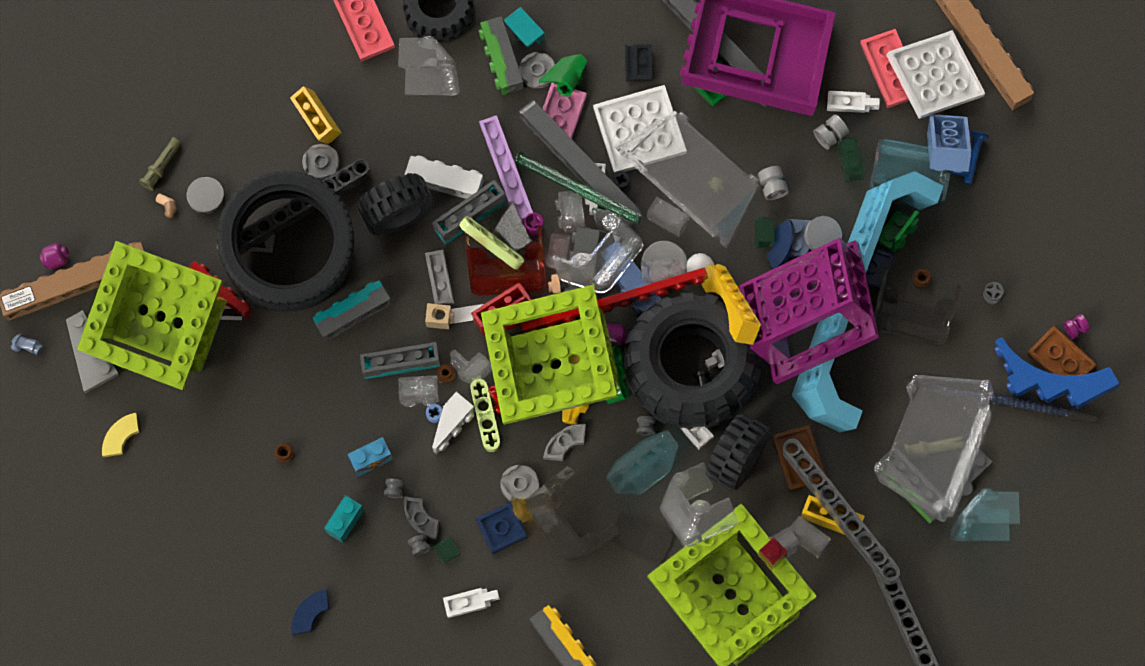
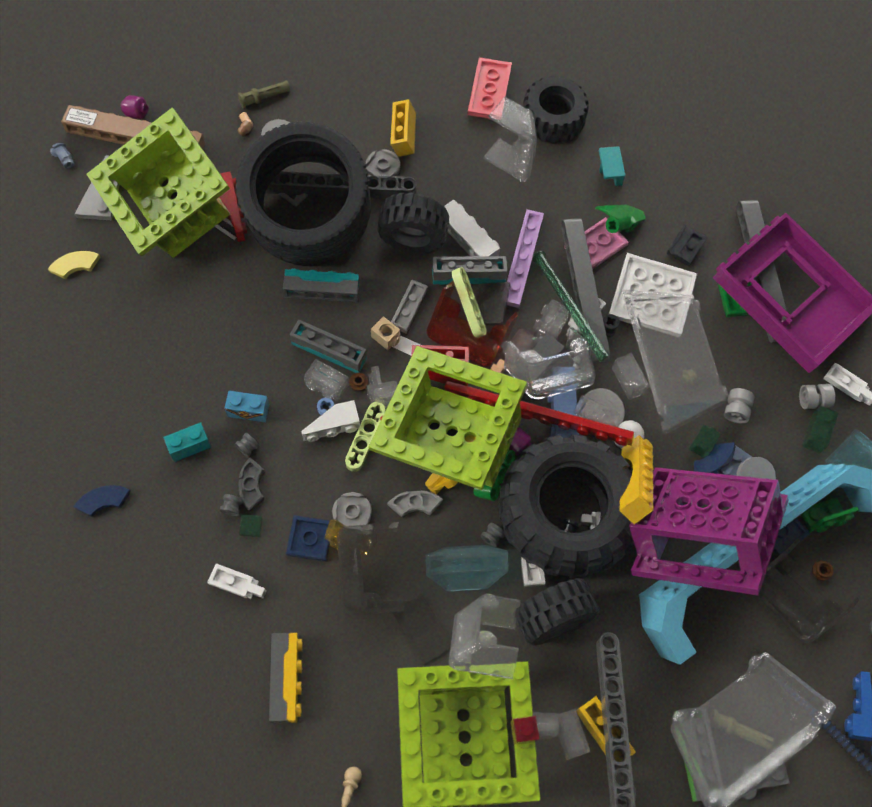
camera: 25 degrees right, 5 degrees down
(283, 447) = (184, 354): reddish brown plate -> none
(501, 55) = (579, 174): piece -> none
(531, 221) = (512, 307): magenta wheel -> none
(534, 67) = (598, 197): light grey tile -> none
(805, 437) = (627, 640): reddish brown plate -> none

